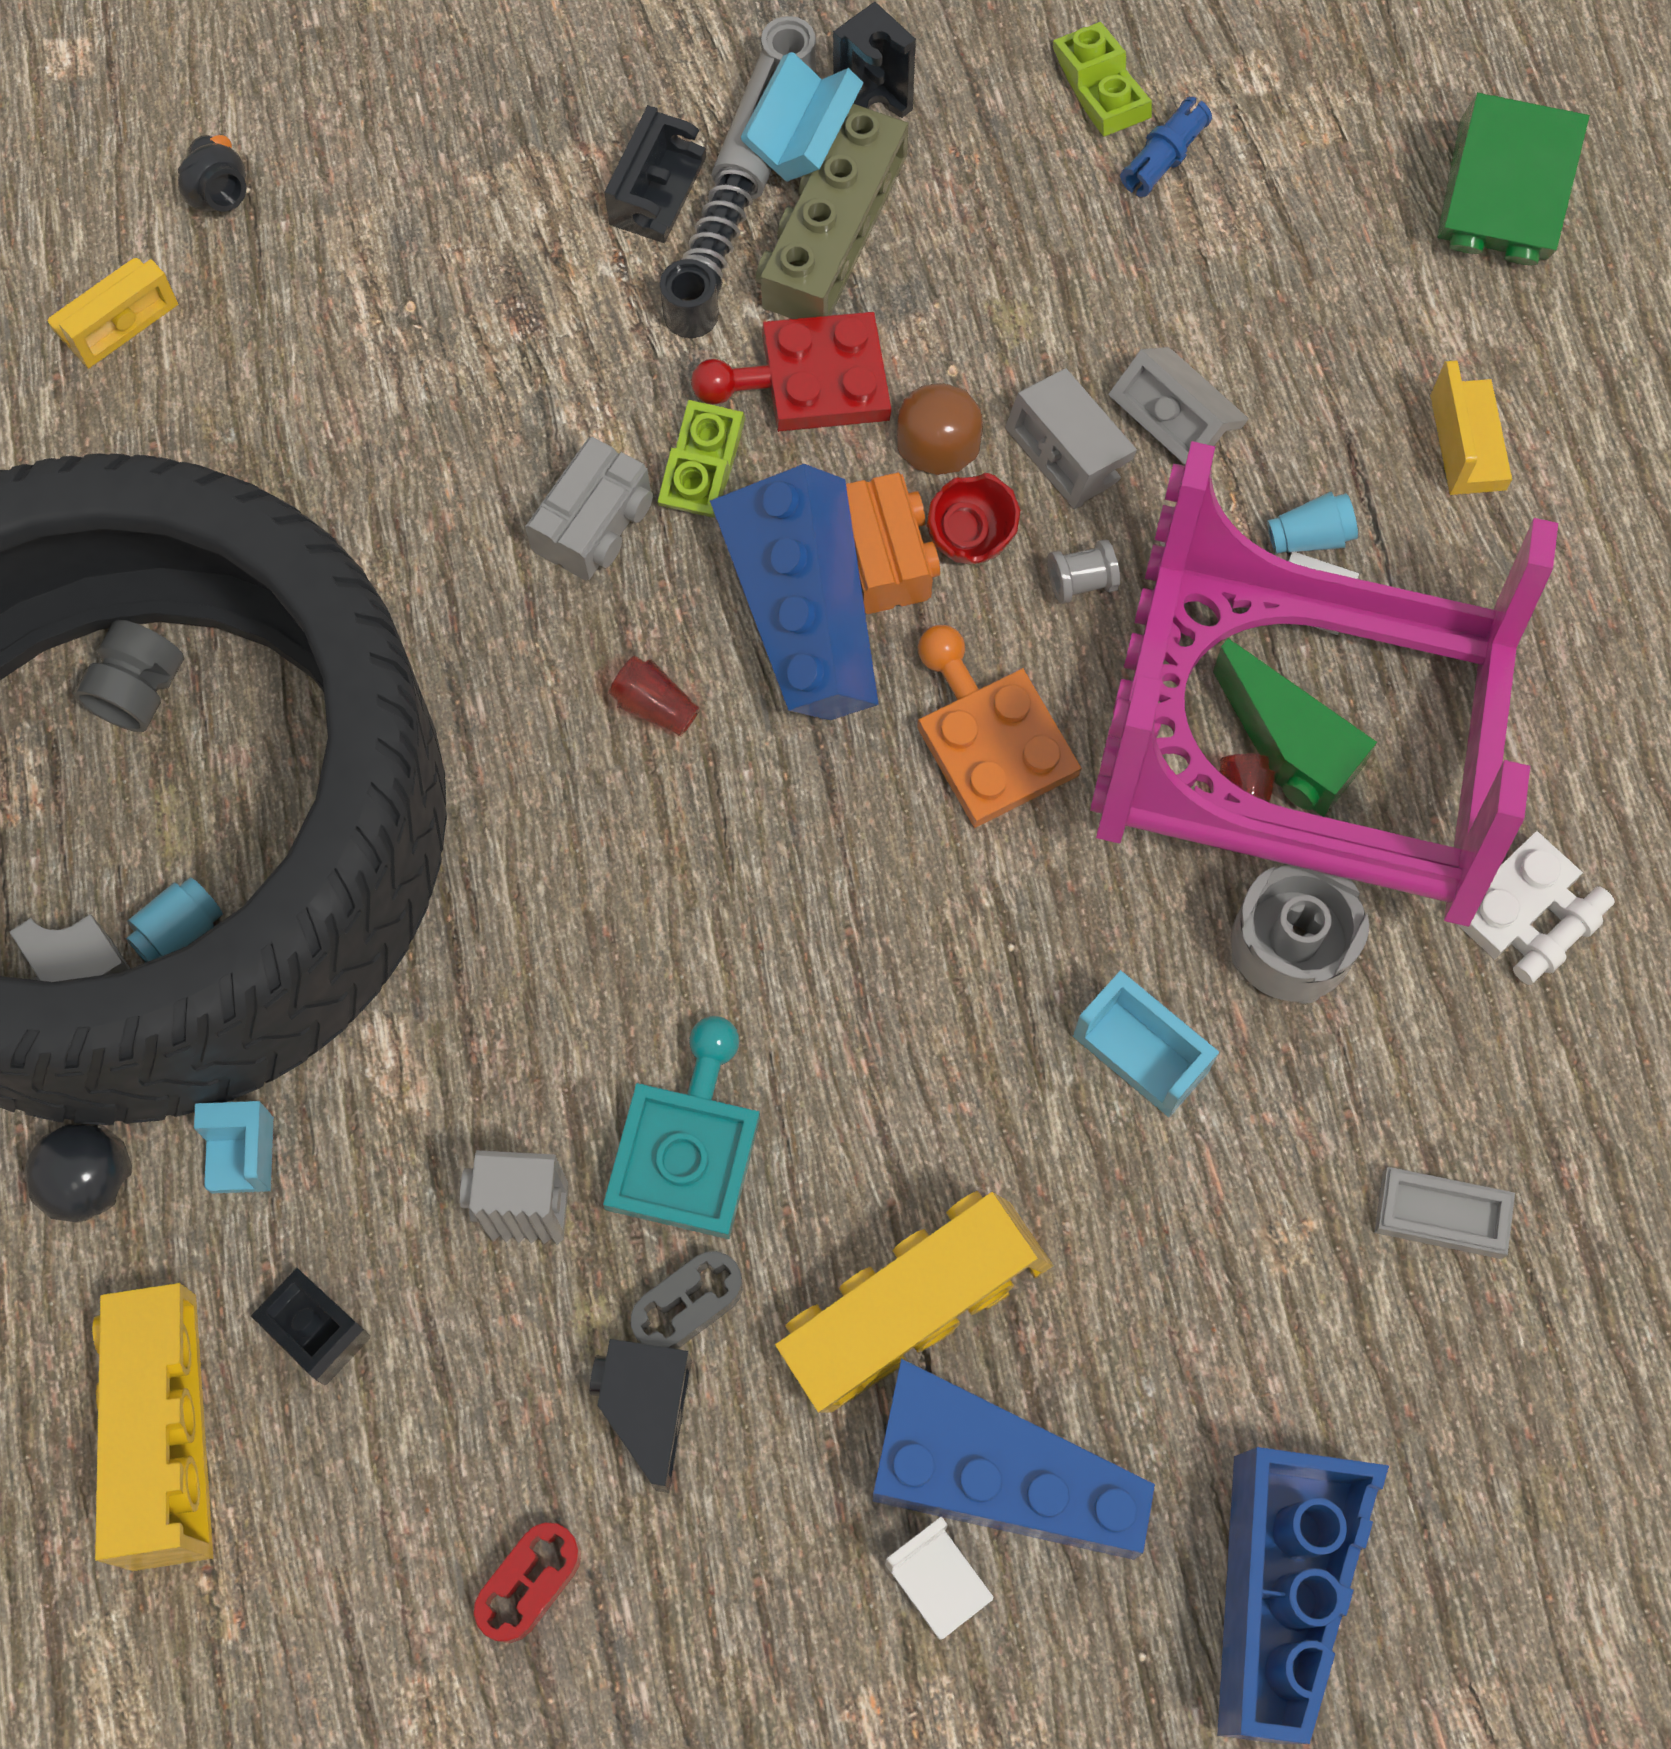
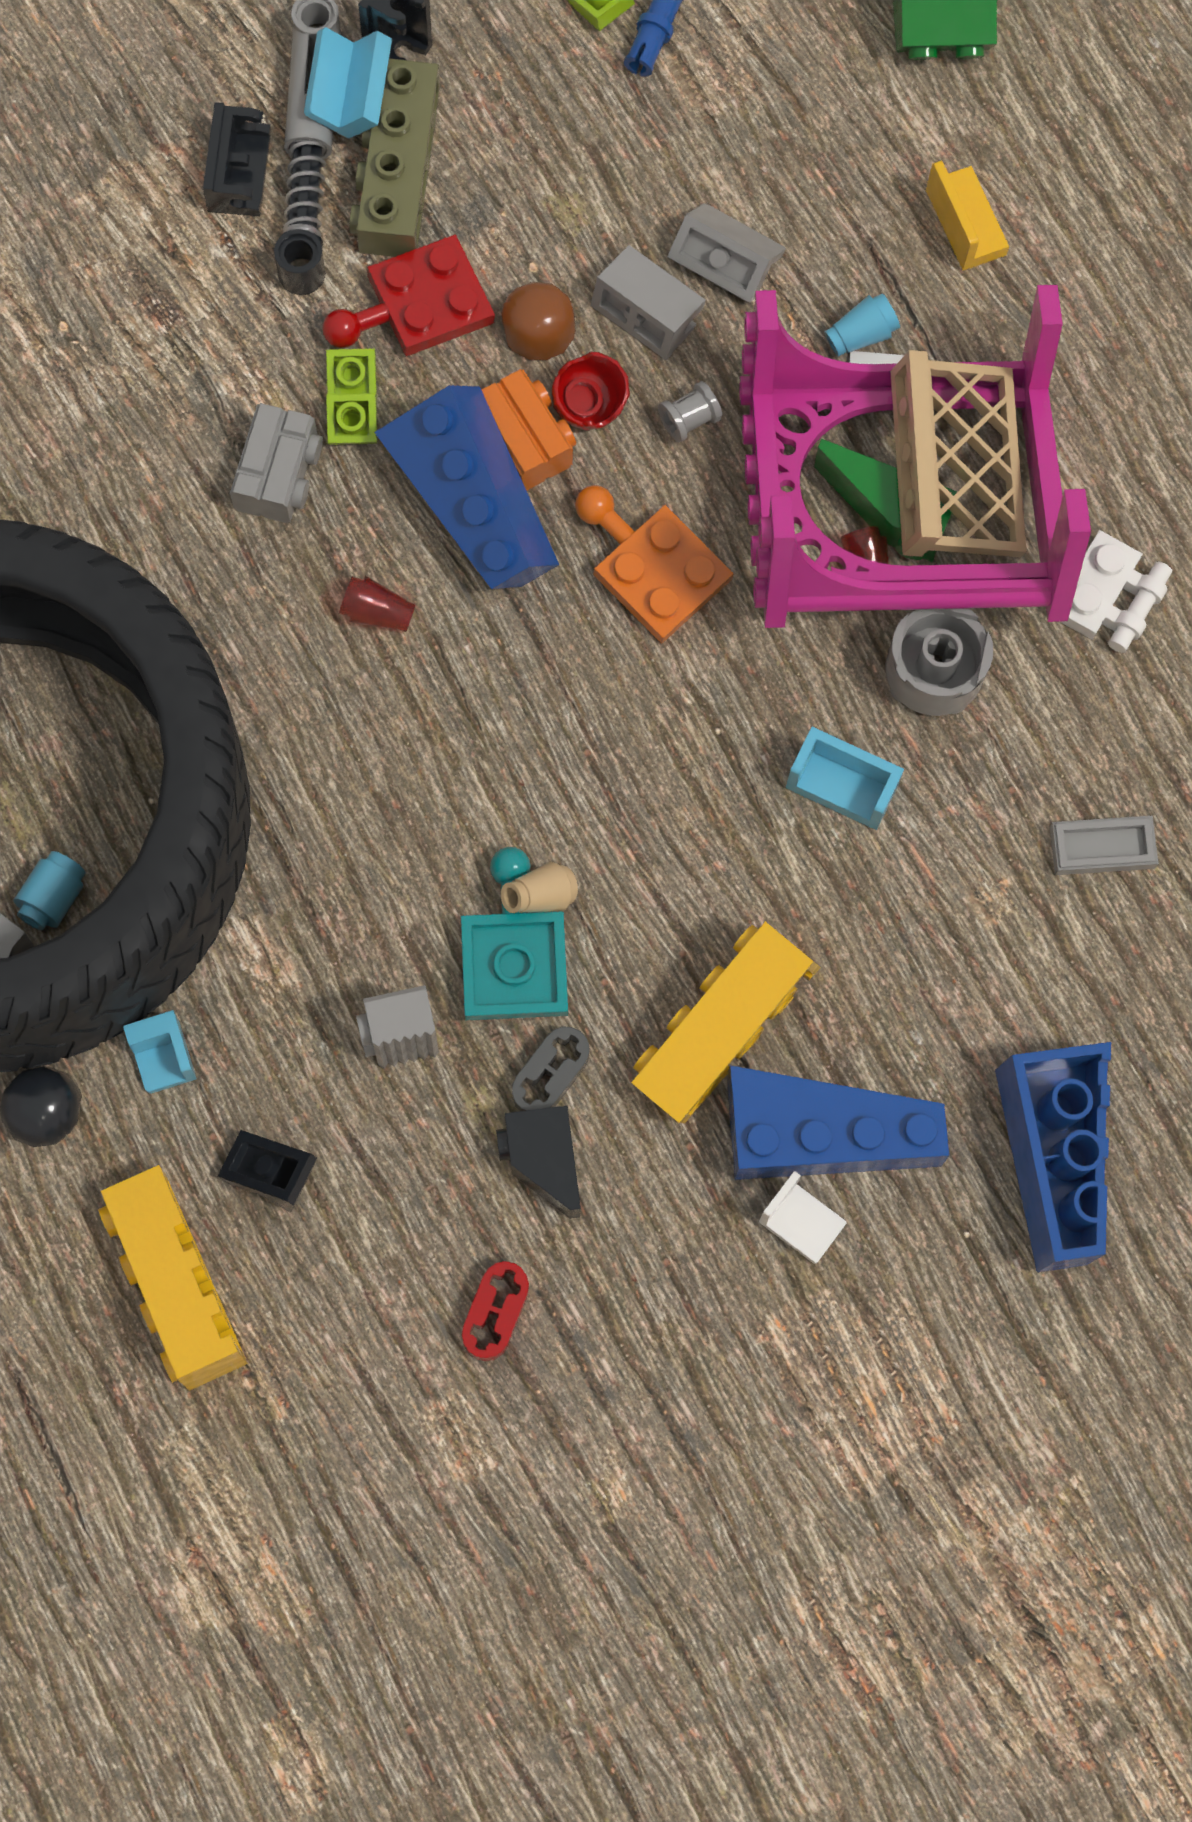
camera: 20 degrees left, 5 degrees up
(740, 1078) = (541, 890): none -> tan cone
(1335, 692) = (918, 451): none -> tan fence

